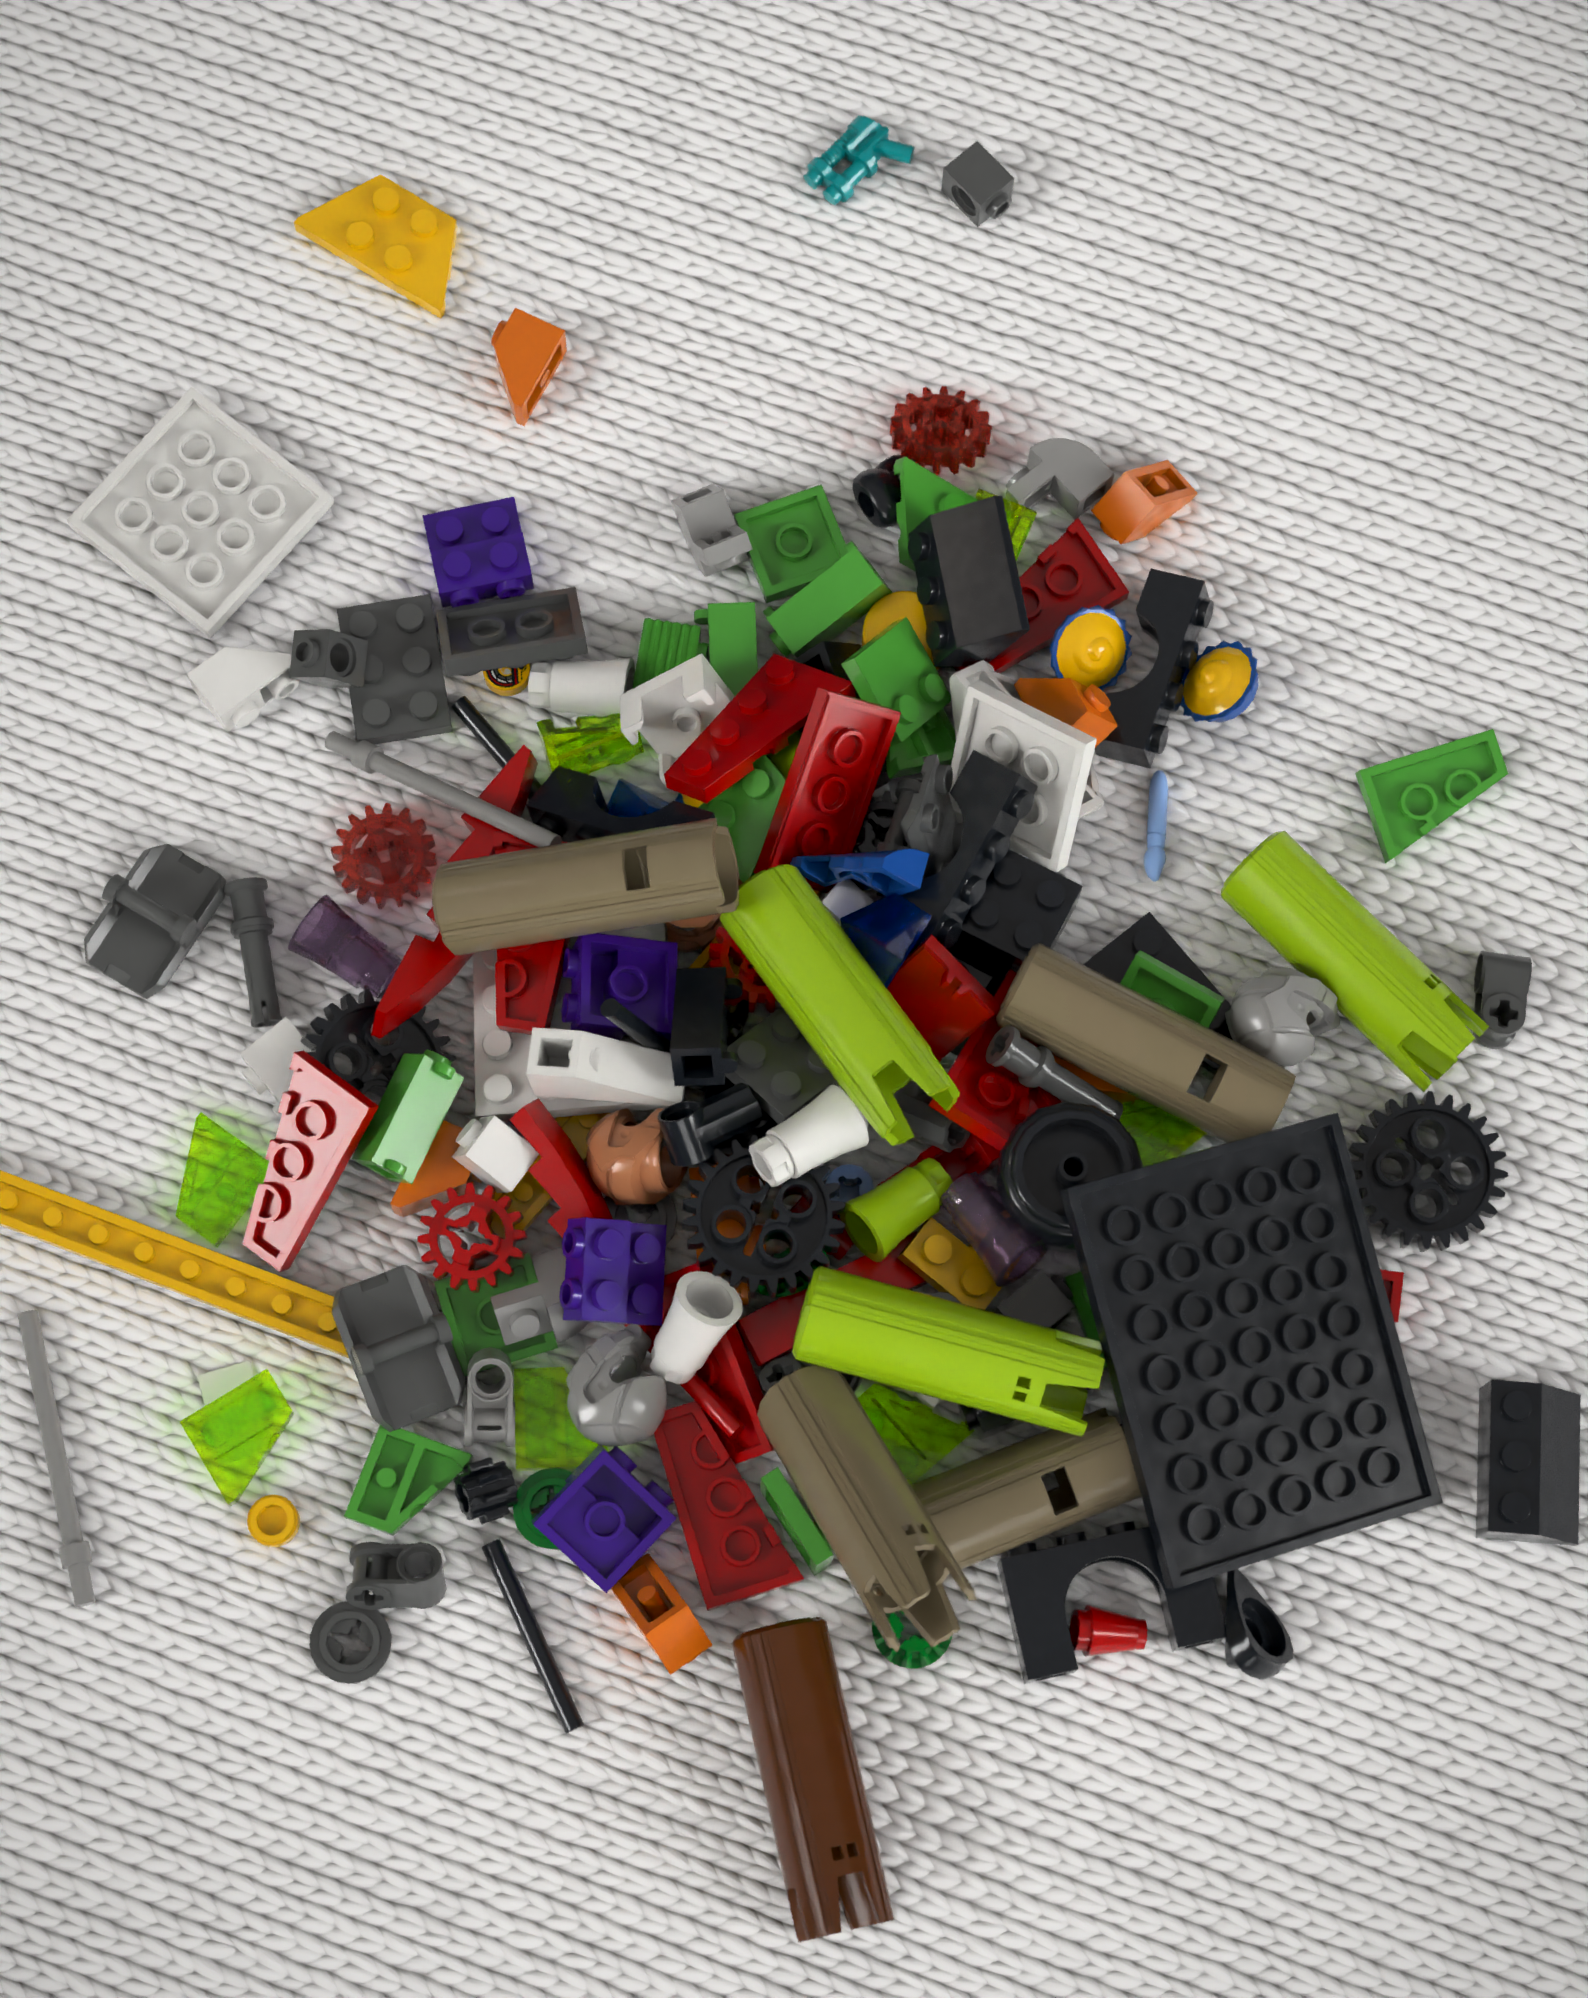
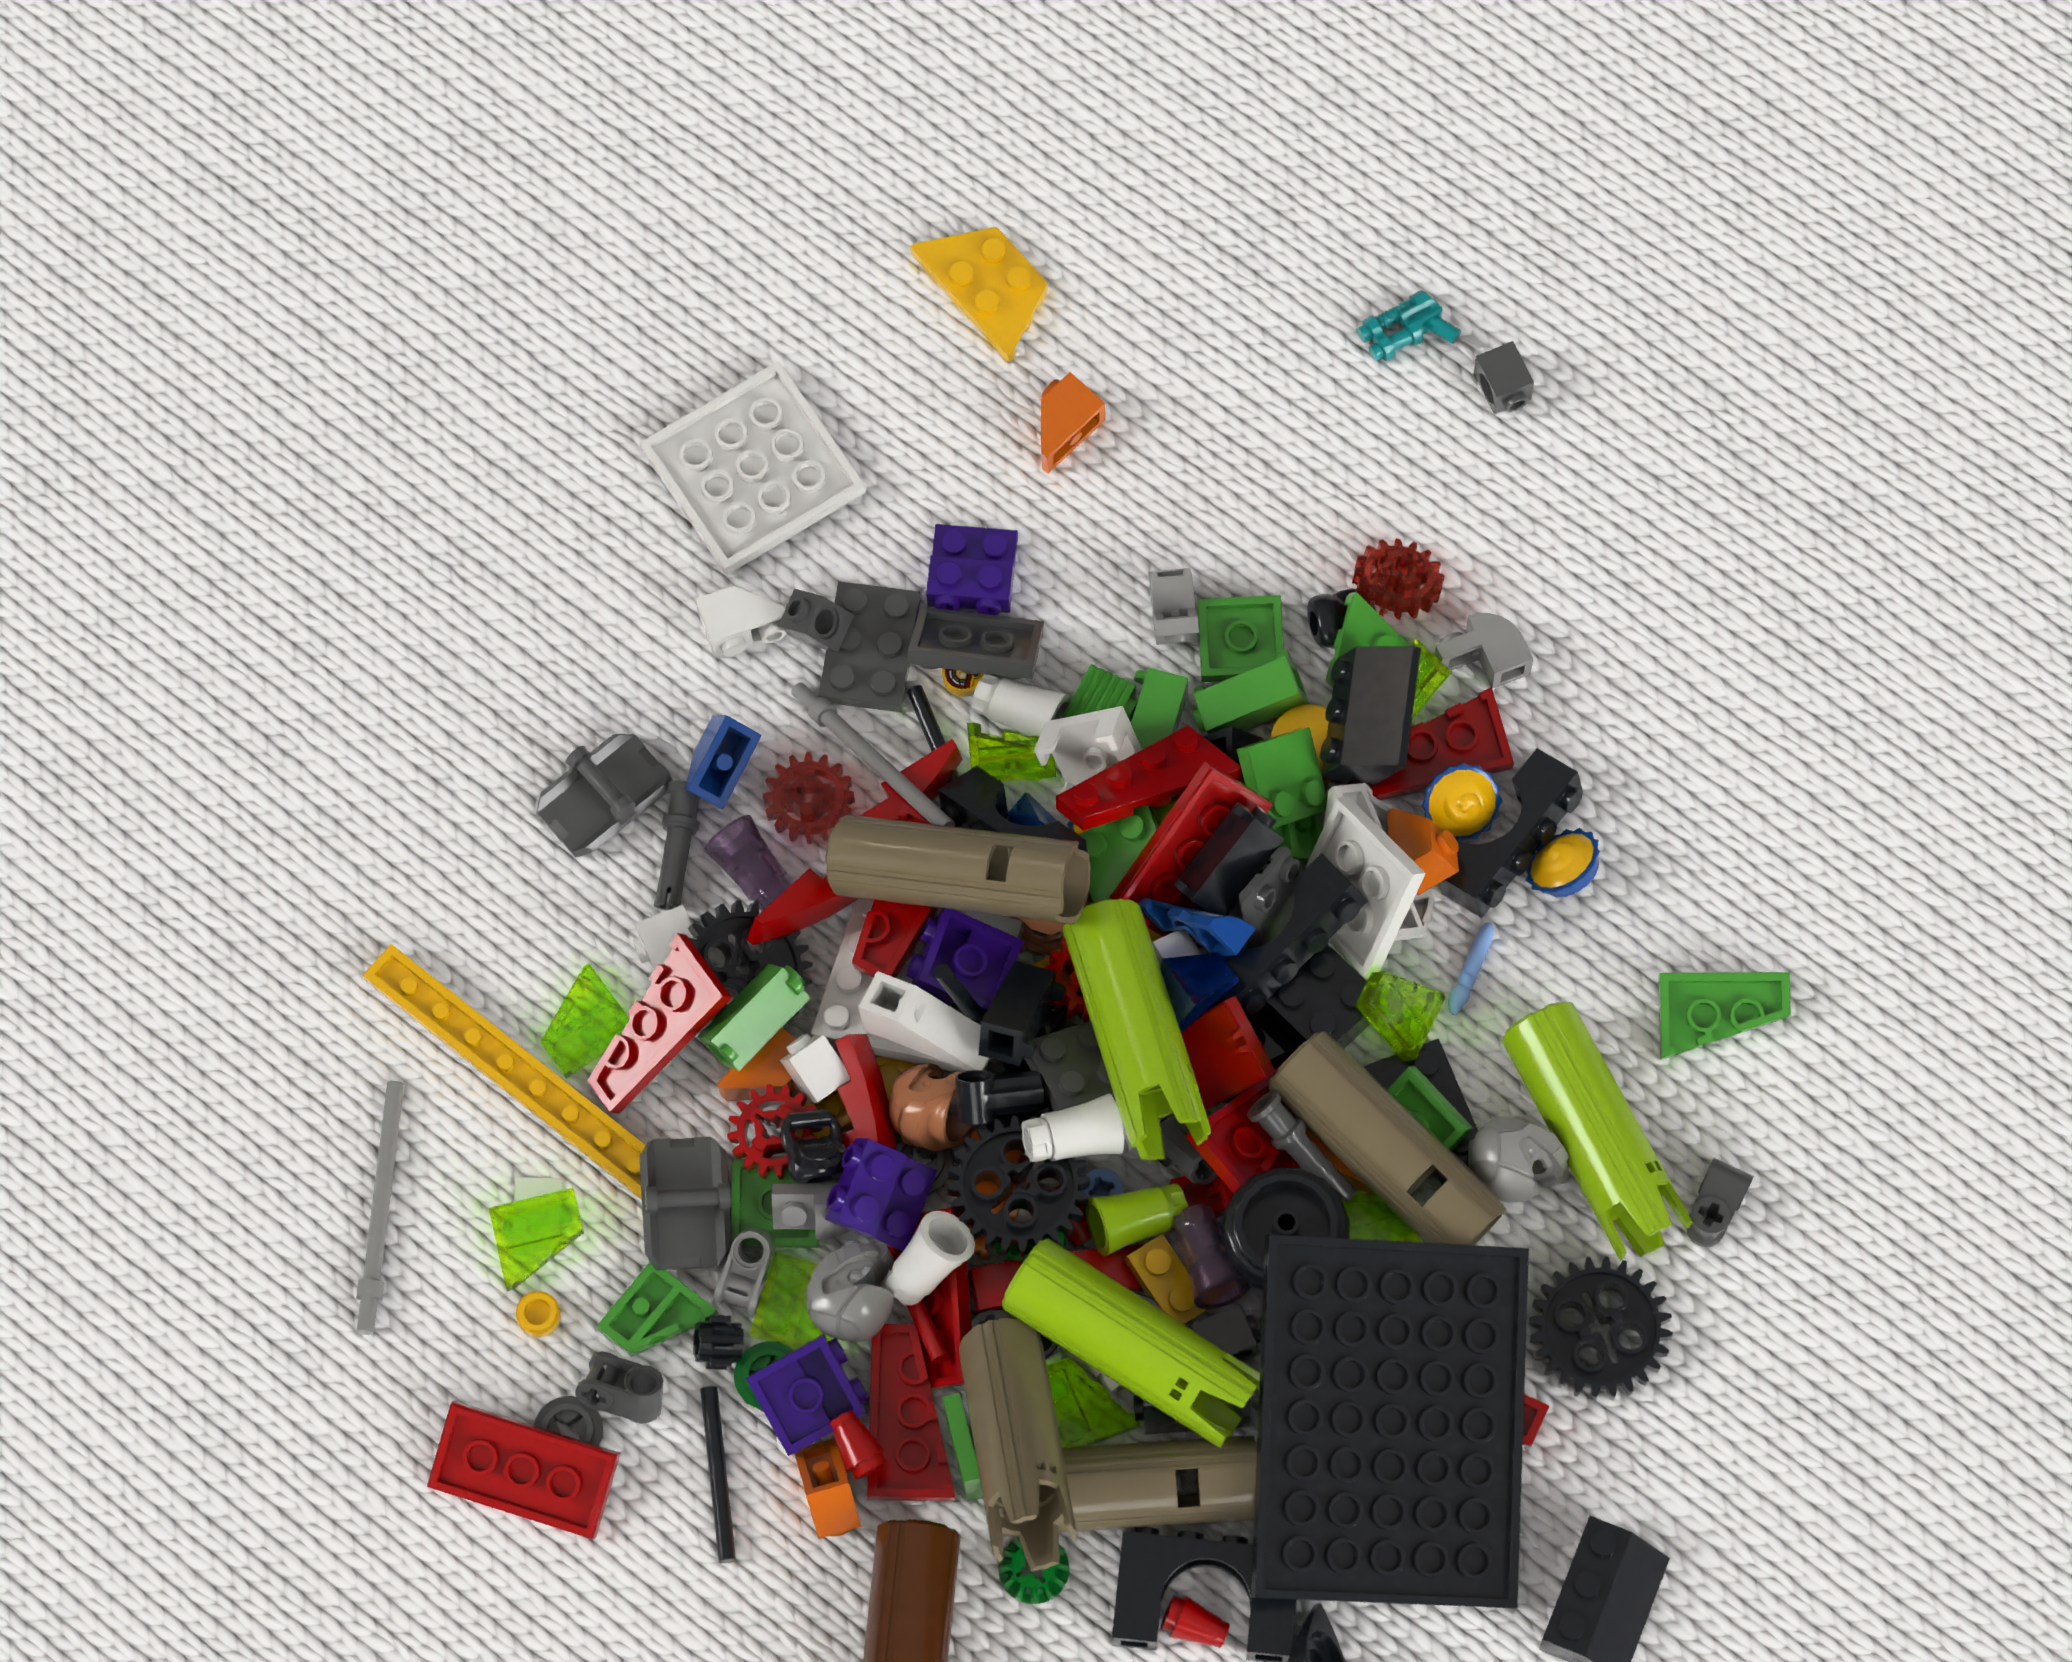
camera: 25 degrees right, 5 degrees down
(274, 842) = (720, 759): none -> blue slope
(315, 1703) = (523, 1469): none -> red tile
(529, 1254) = (816, 1158): none -> black piece
(680, 1559) = (857, 1446): none -> red cone
(875, 786) = (1230, 859): none -> black brick
(1104, 896) = (1400, 1011): none -> clear neon green wing
(1142, 501) = (1553, 689): orange slope -> none

